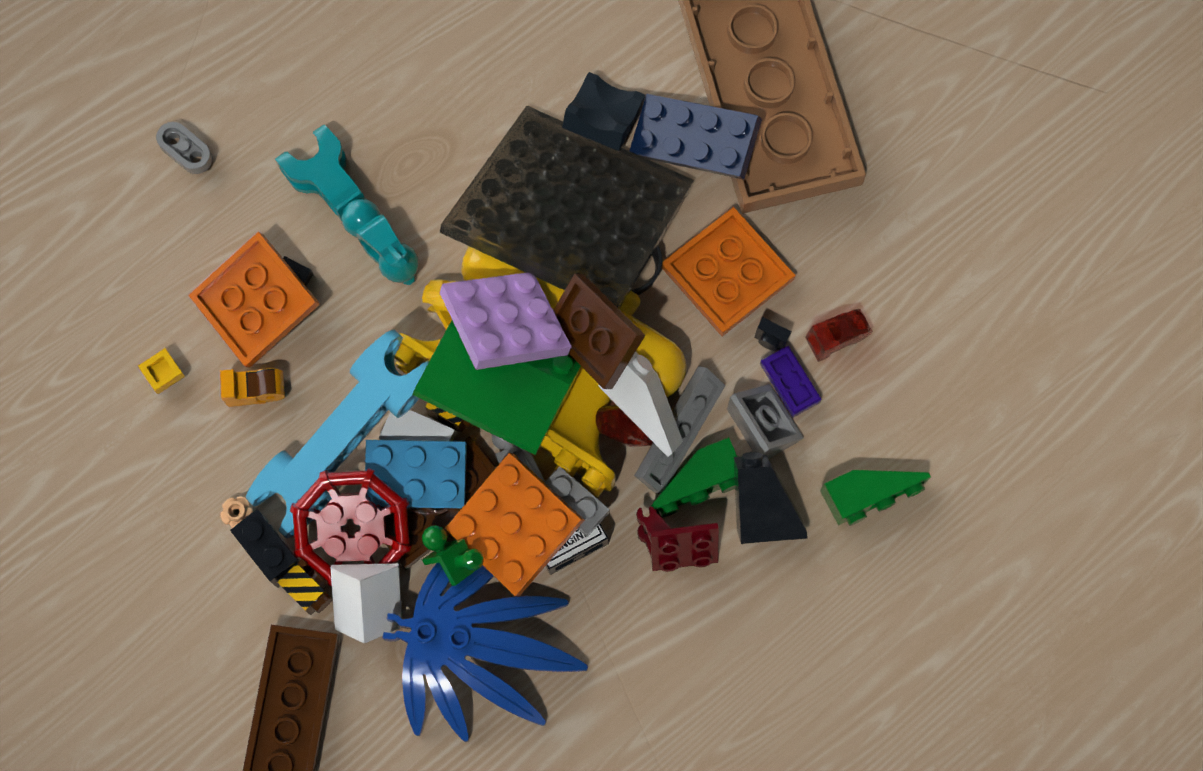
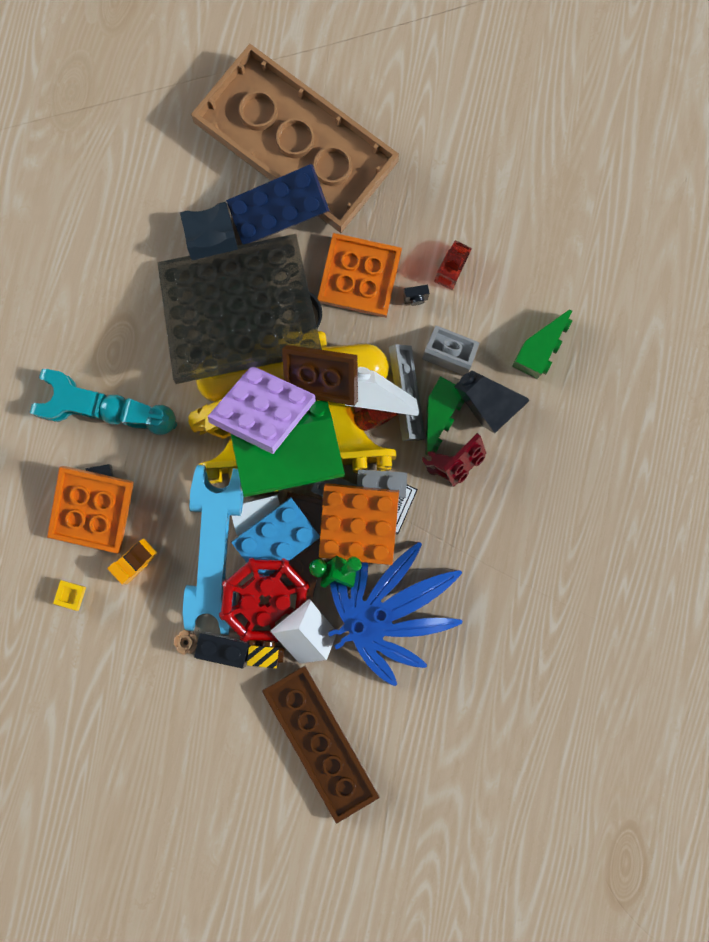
camera: 40 degrees left, 10 degrees up
(790, 381) = (447, 314): dark purple plate -> none

